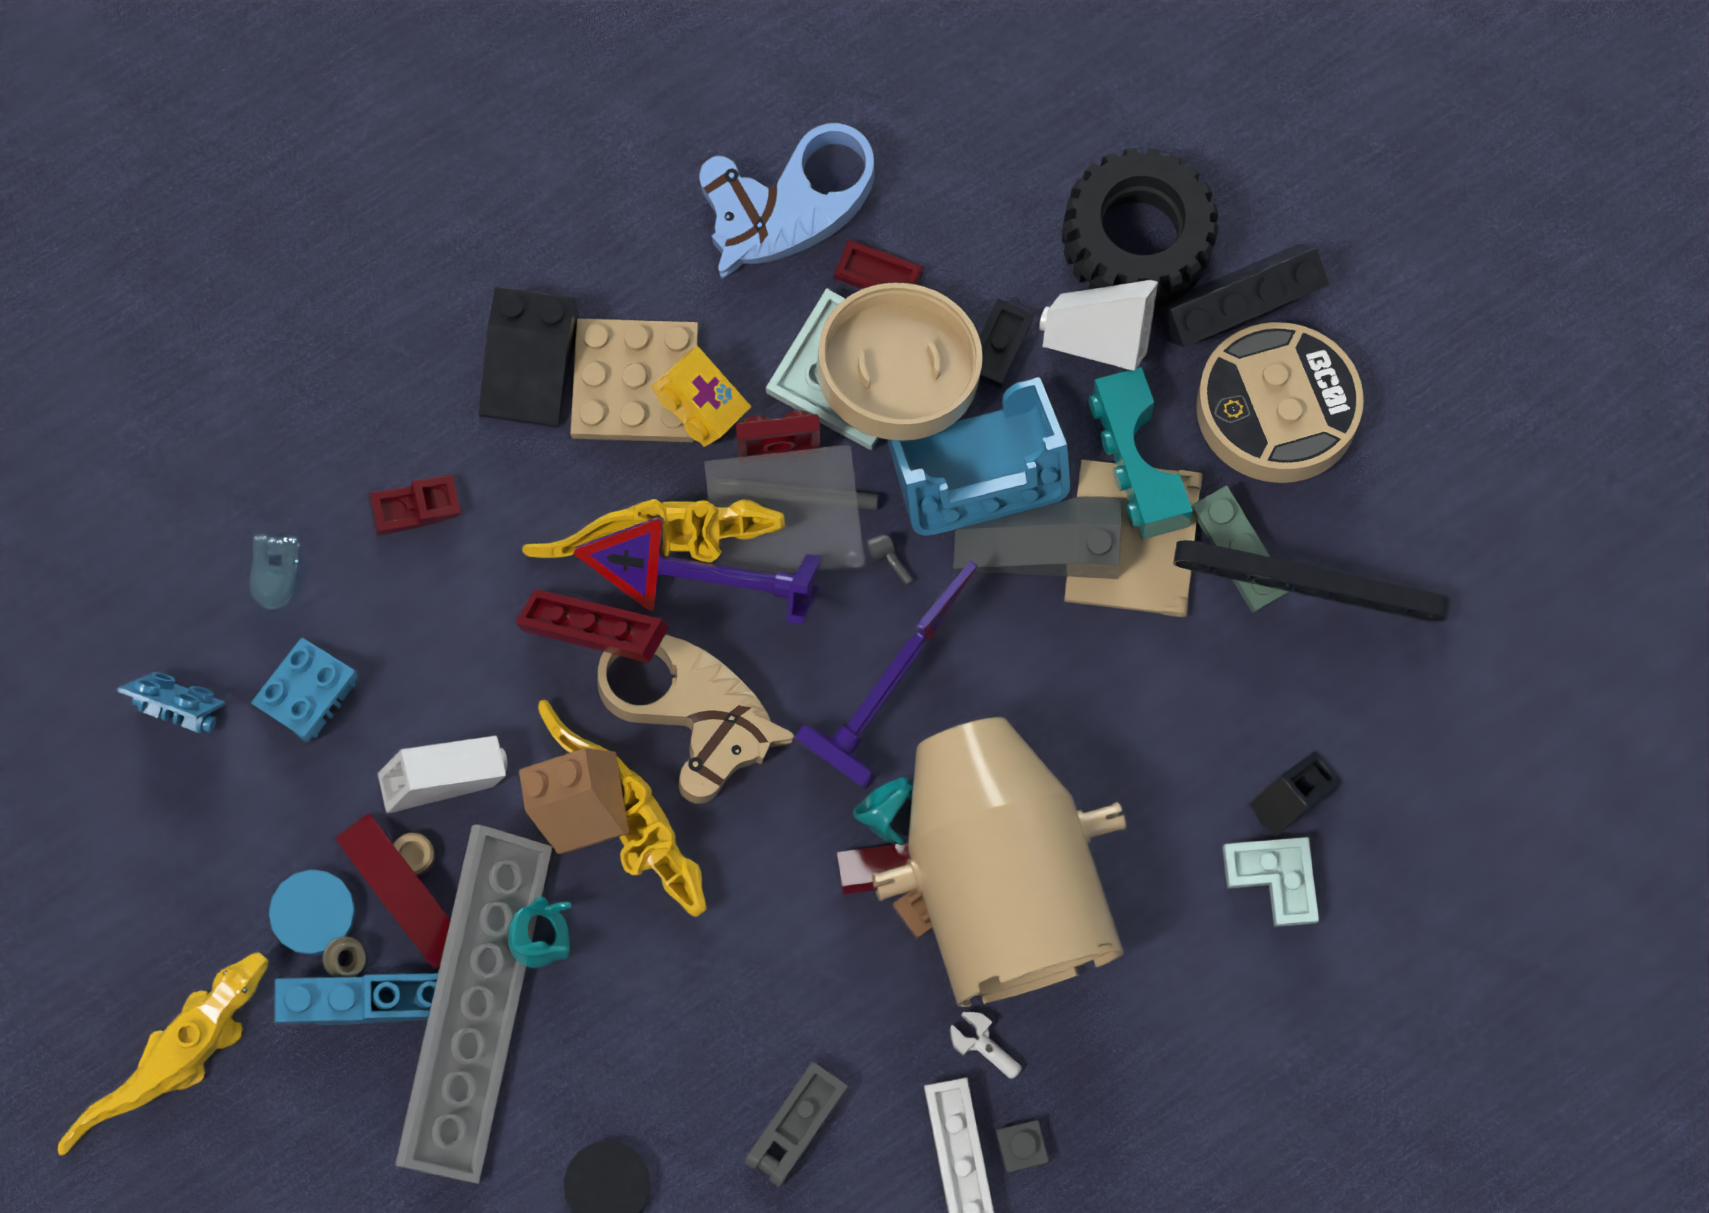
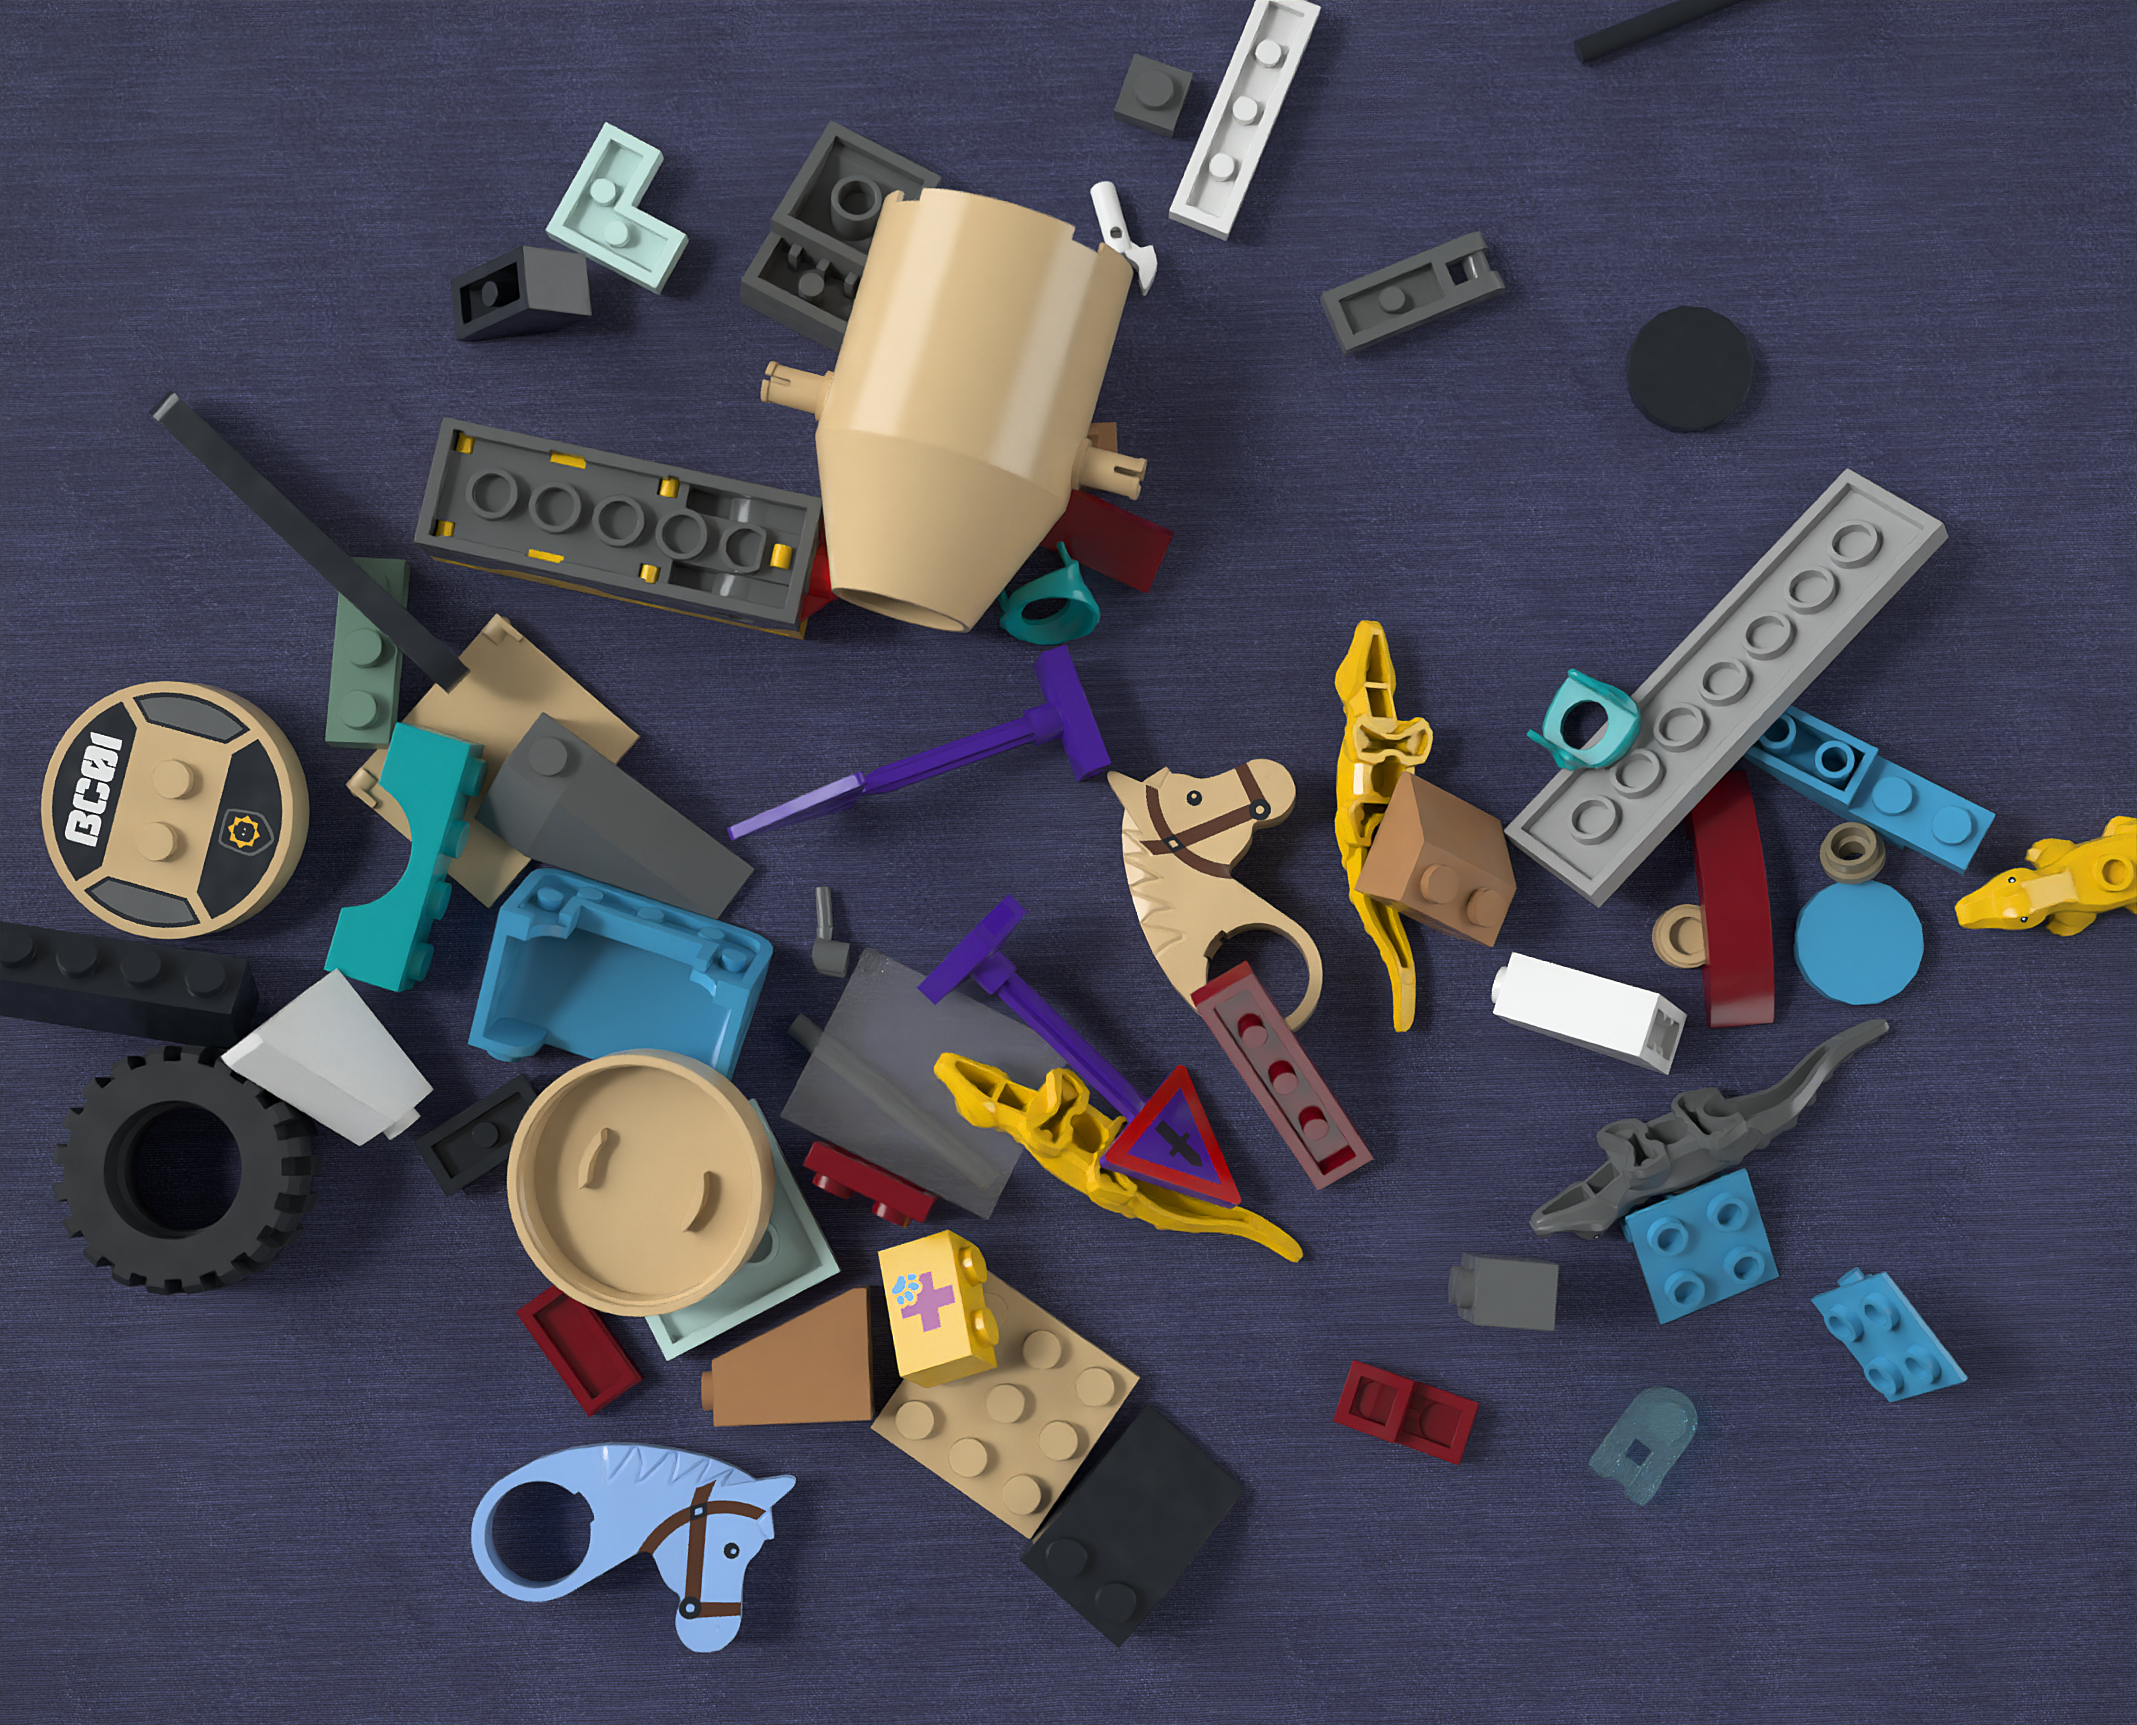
camera: 145 degrees left, 10 degrees up
(341, 742) = (1692, 1141): none -> dark grey animal
(400, 590) = (1505, 1291): none -> dark grey brick
(754, 327) = (800, 1370): none -> medium nougat slope
(1146, 693) = (625, 529): none -> dark grey piece
(1154, 943) = (824, 233): none -> dark grey slope

